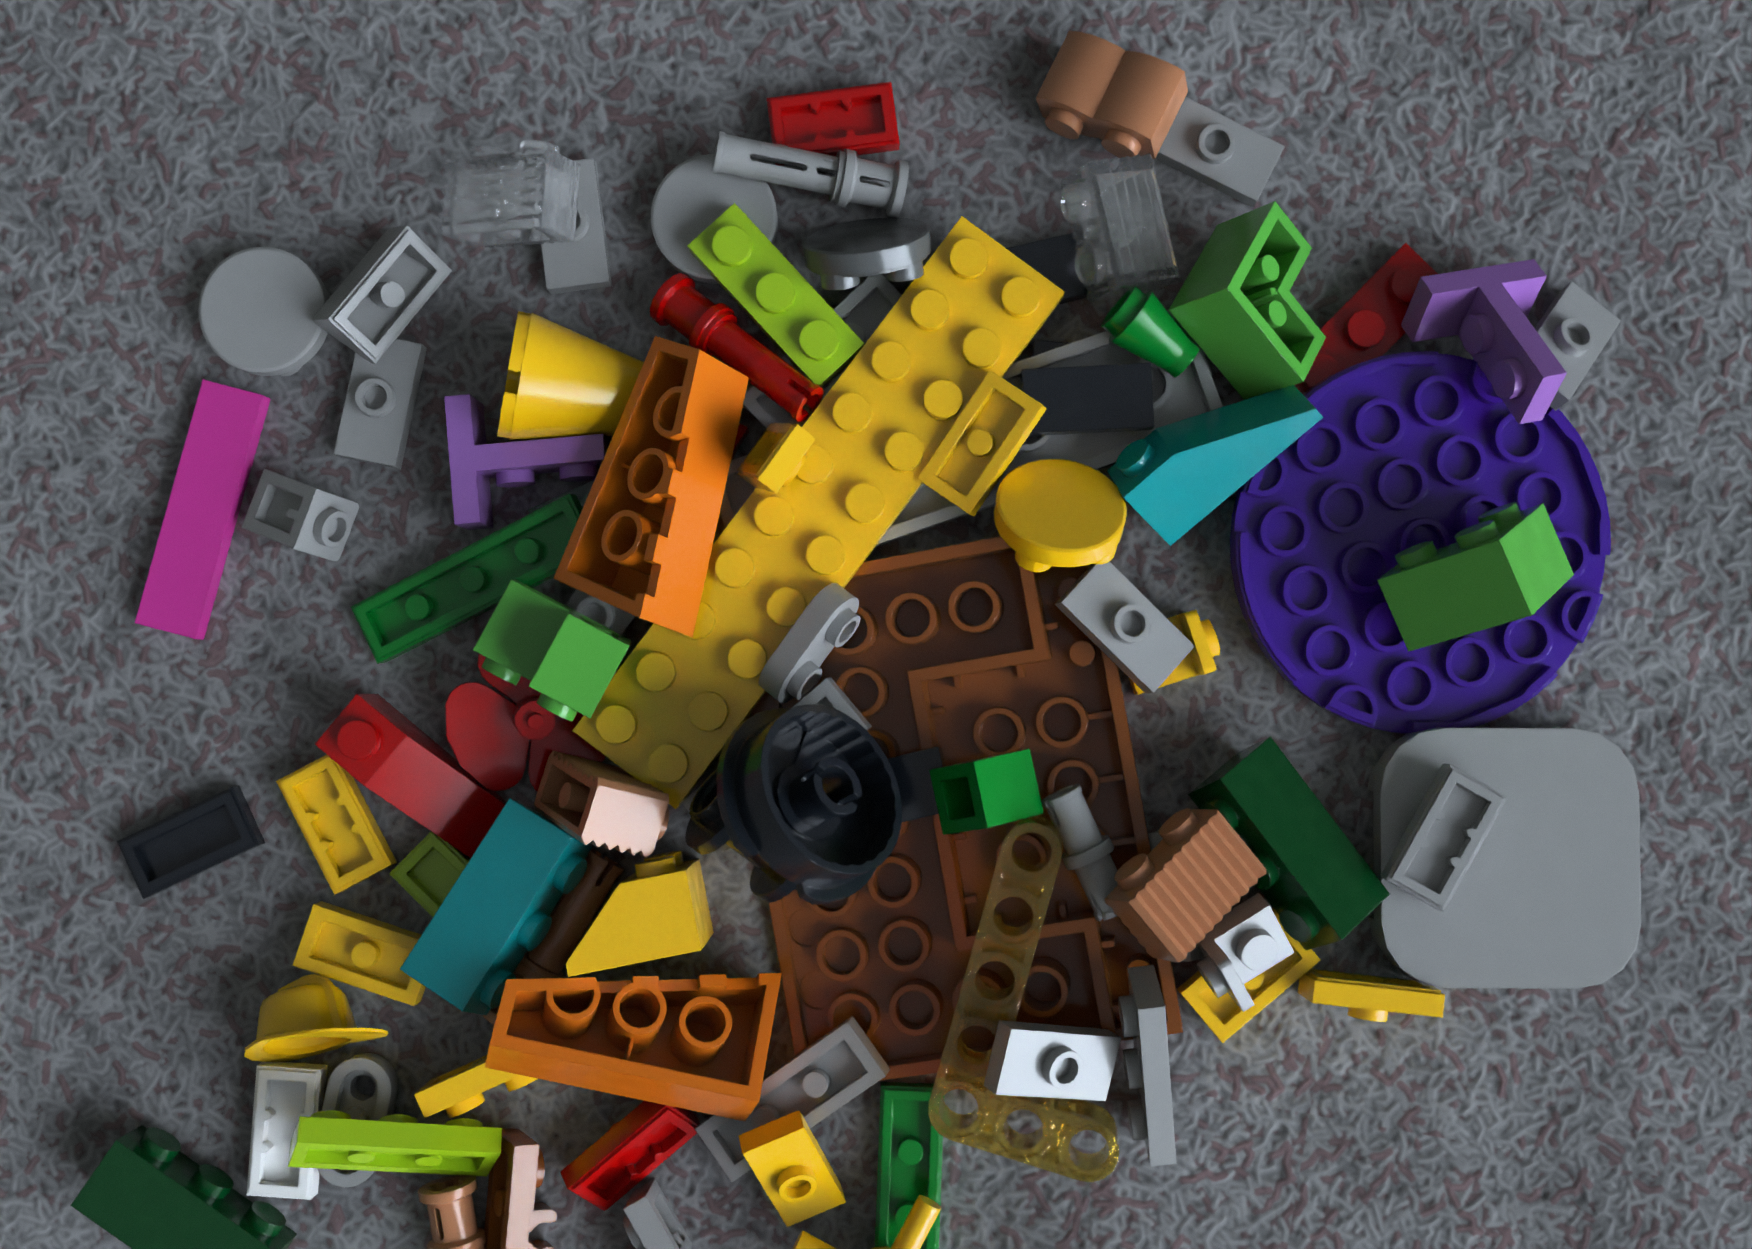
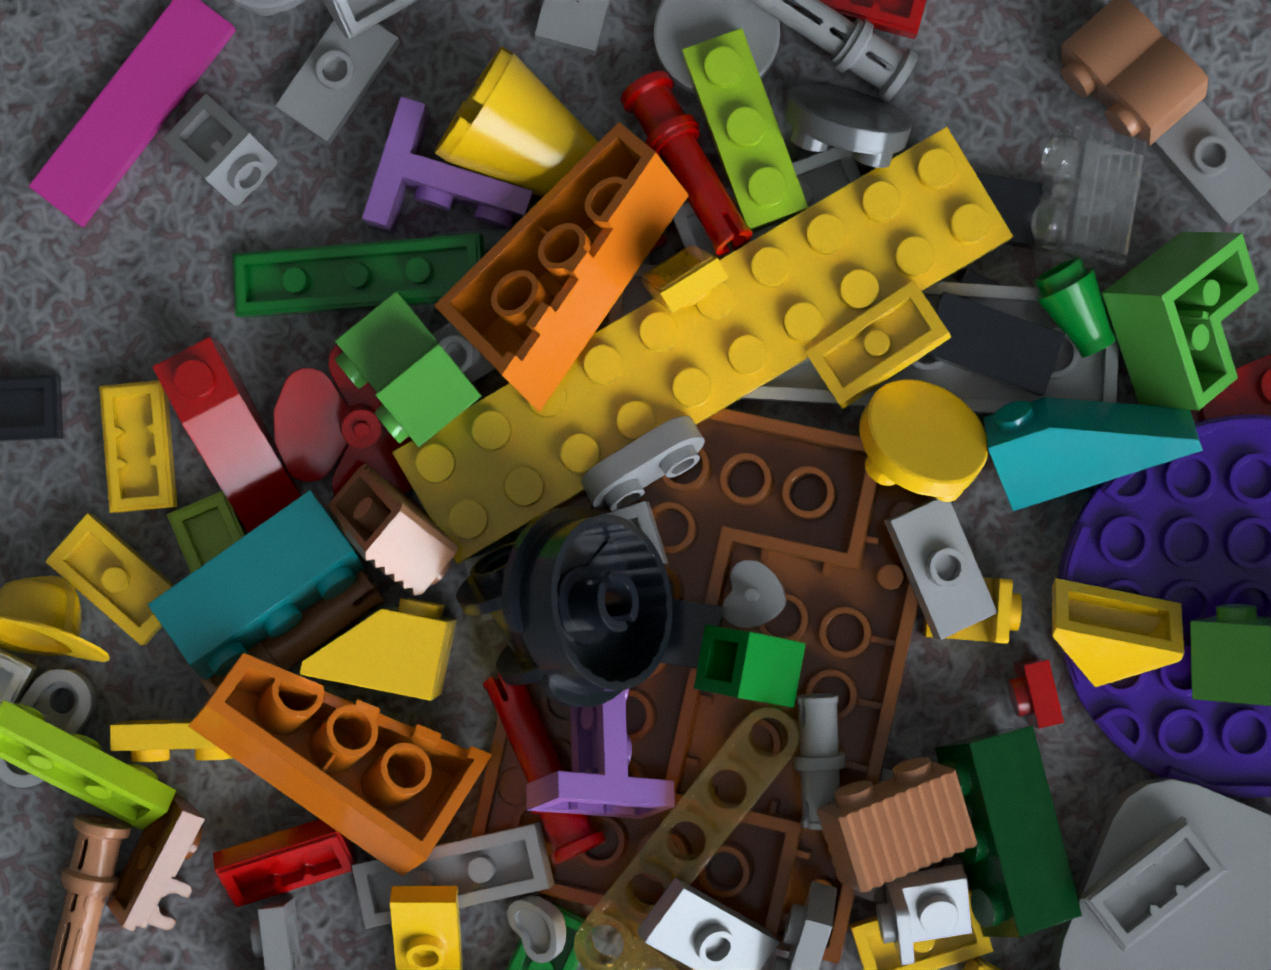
camera: 20 degrees right, 0 degrees up
(854, 984) = (538, 758): none -> red pin
(888, 948) = (600, 771): none -> medium lavender bracket
(891, 1113) = (539, 926): none -> light grey piece
(964, 723) = (755, 595): none -> light grey piece
(1260, 705) = (1035, 693): none -> red plate
(1311, 617) = (1115, 631): none -> yellow slope

